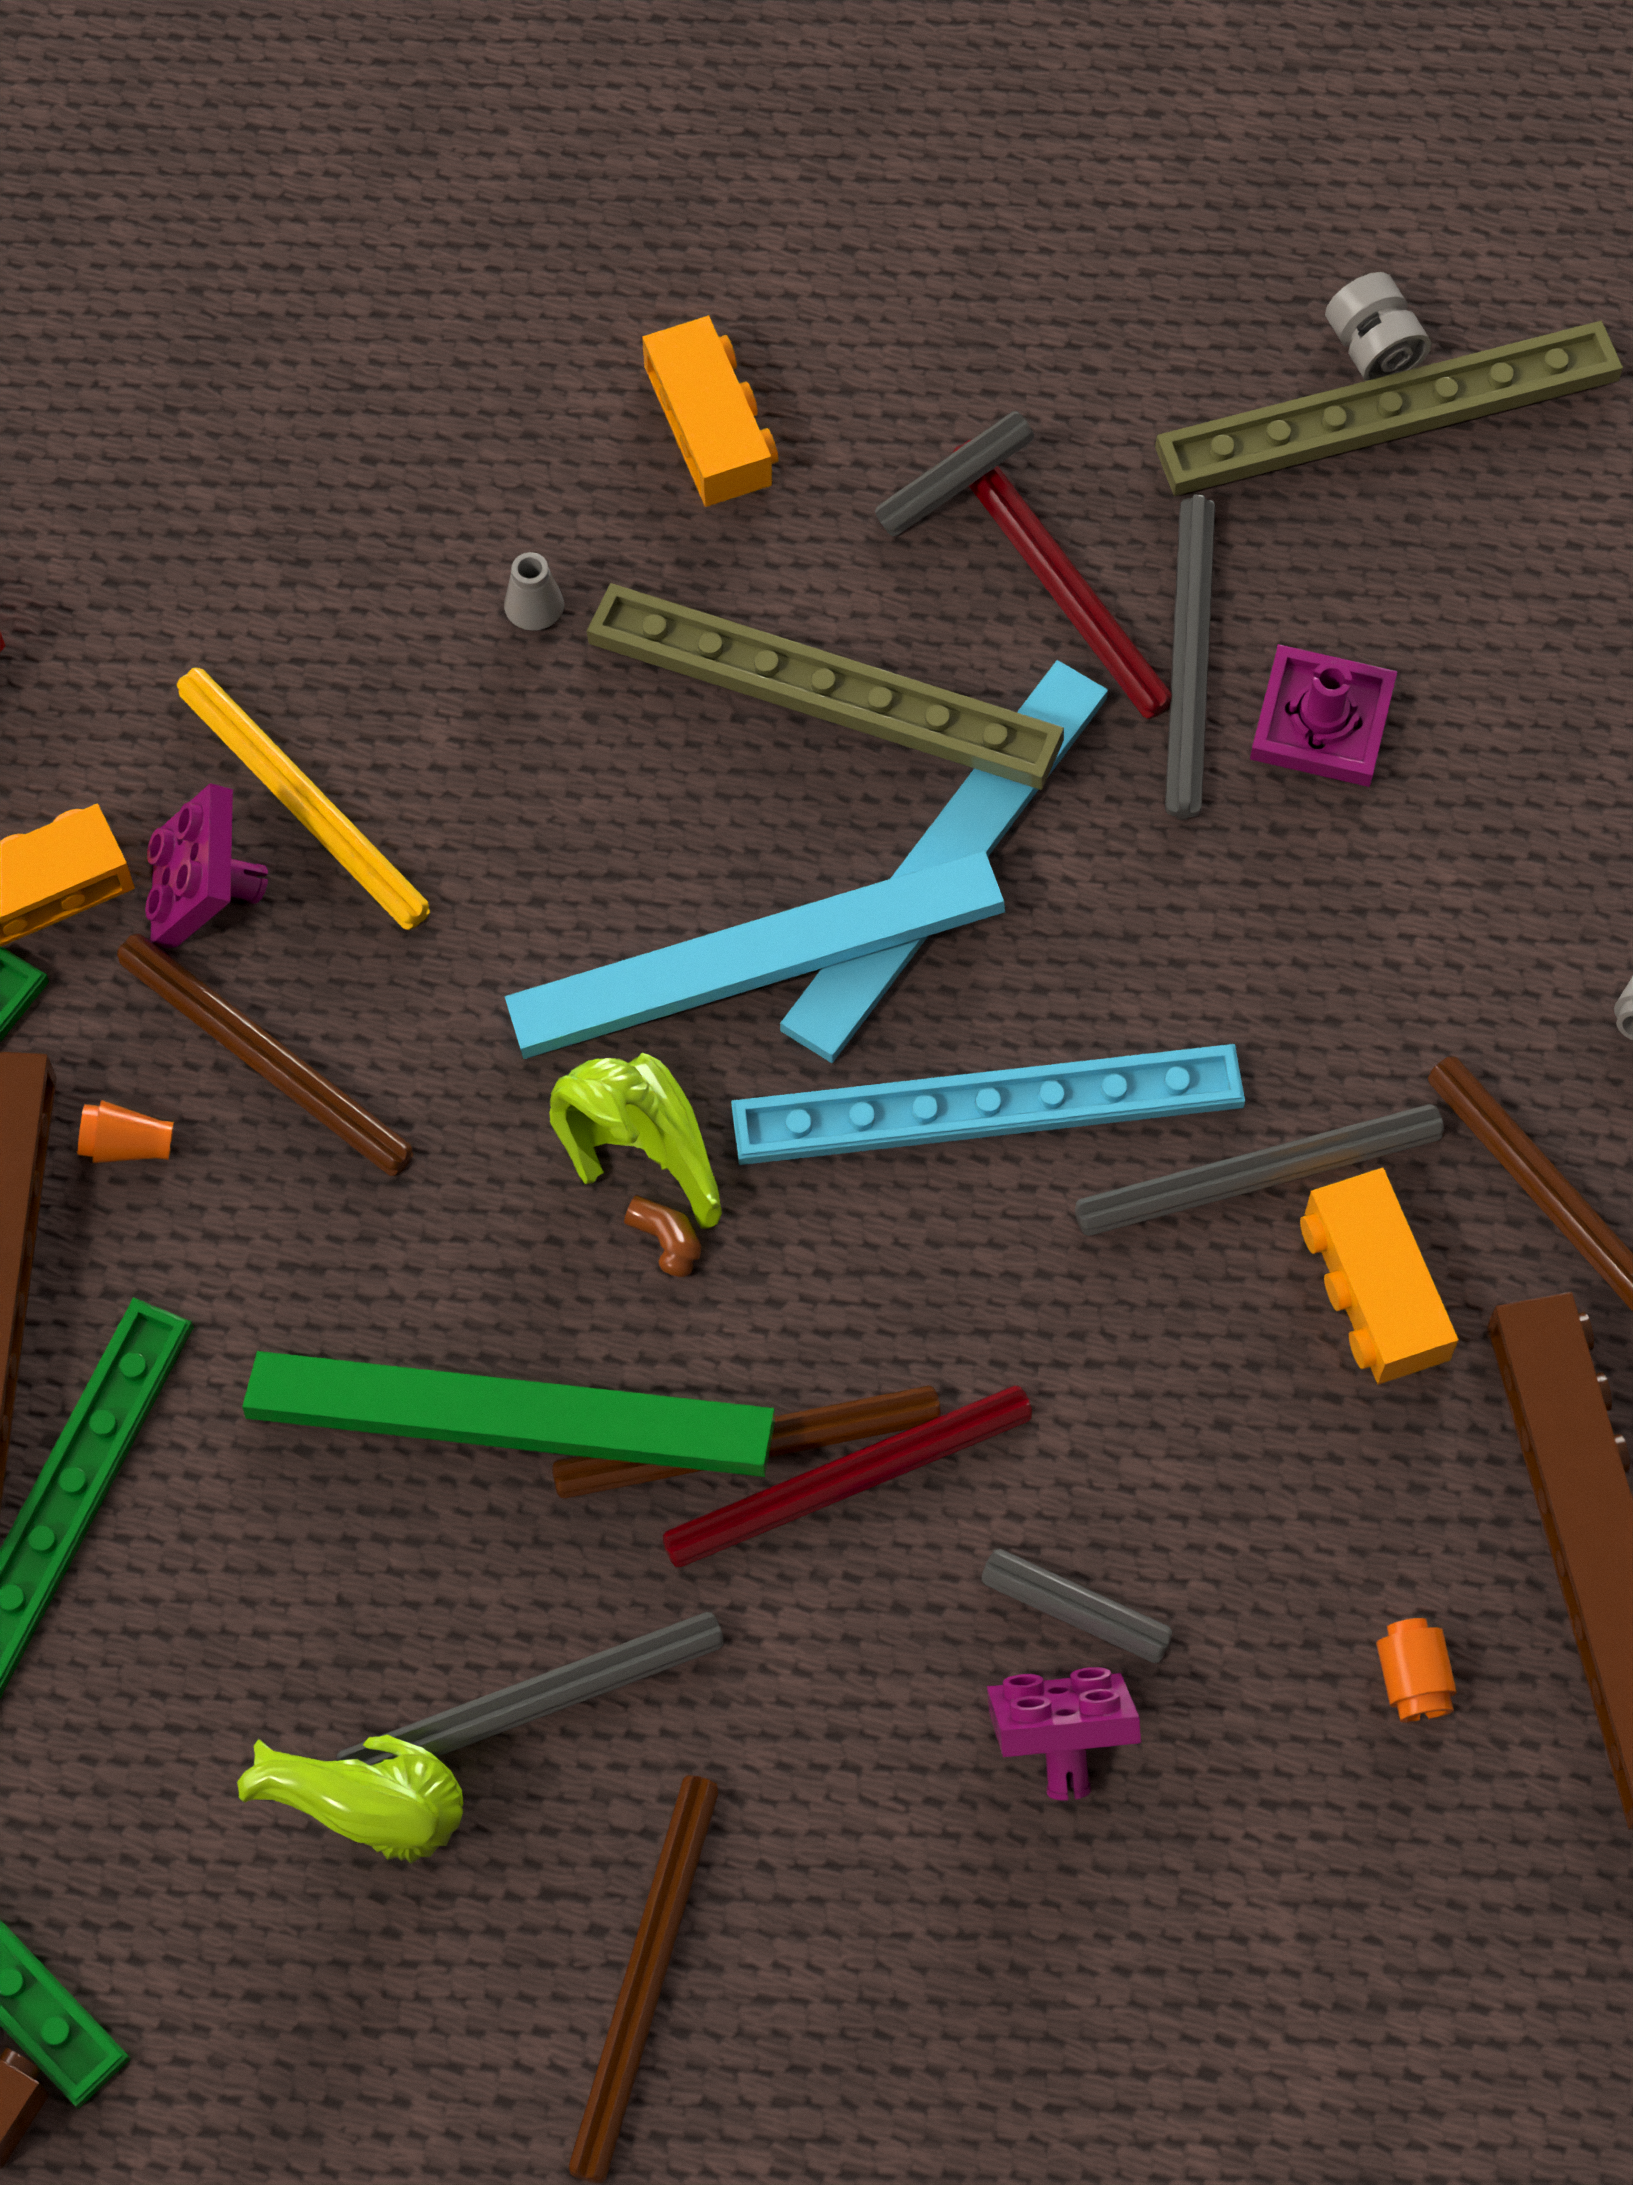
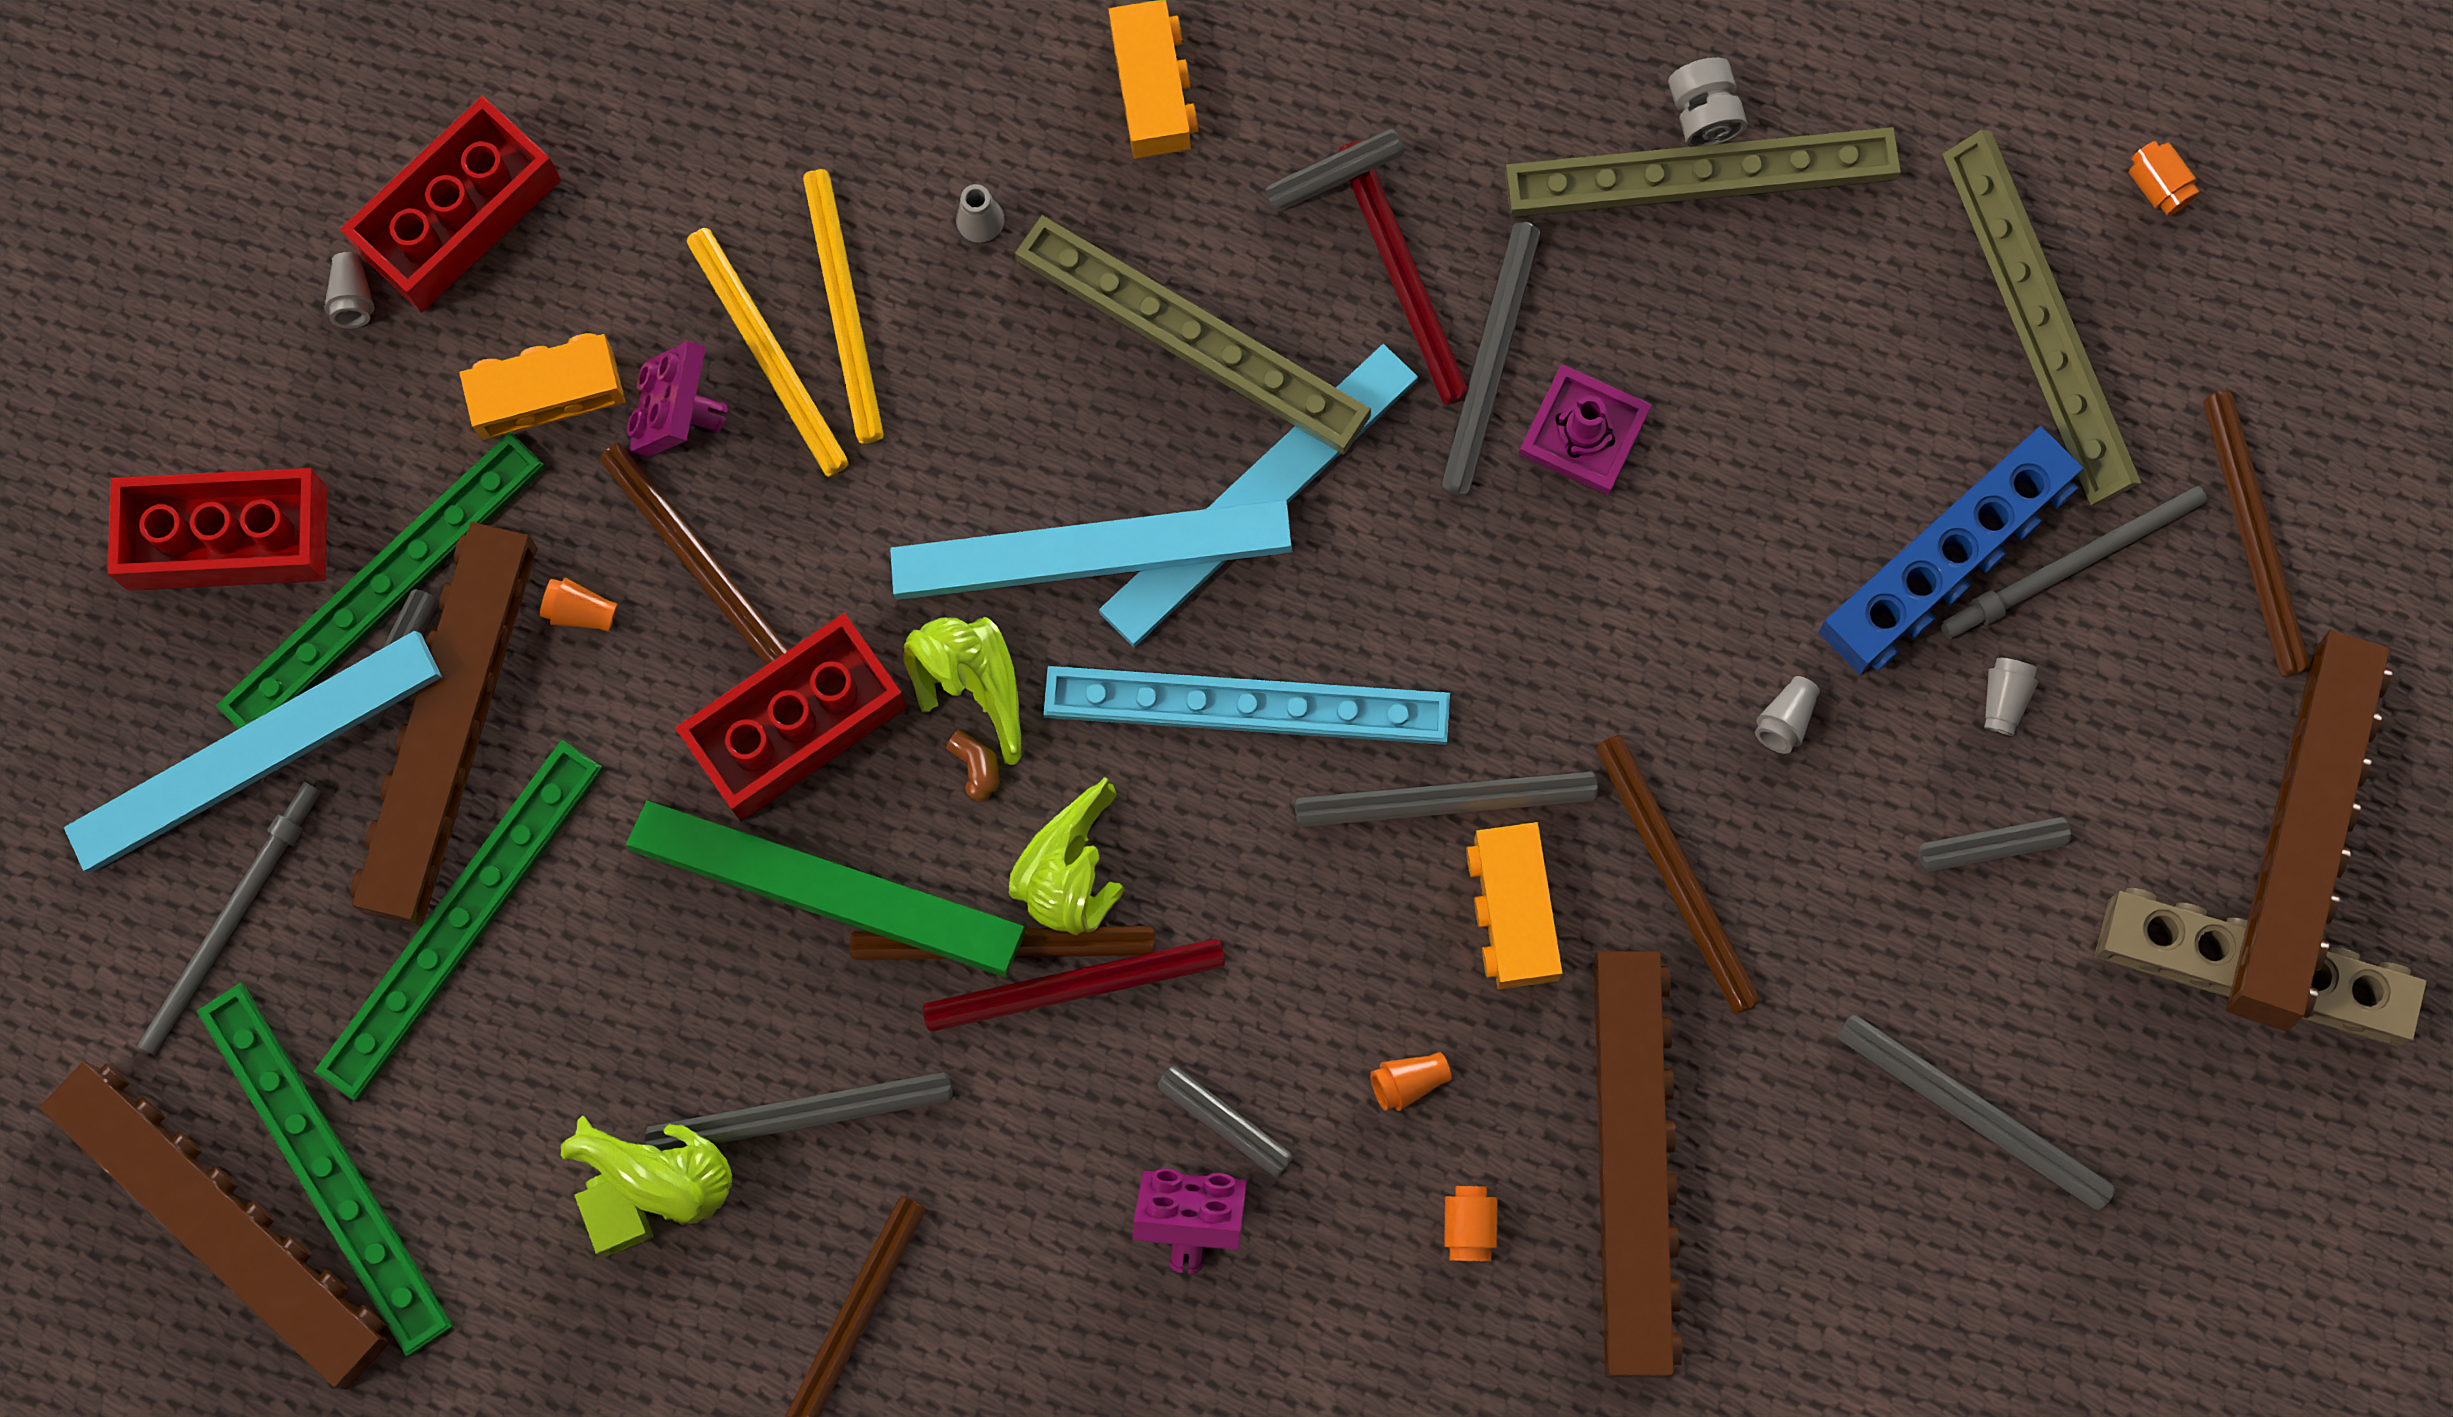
camera: 15 degrees right, 10 degrees up
(316, 1869) = (611, 1218): none -> lime brick
(386, 731) = (843, 306): none -> yellow axle
(425, 1213) = (792, 717): none -> red brick
(802, 1344) = (1059, 871): none -> lime hair
(1293, 1511) = (1407, 1080): none -> orange cone

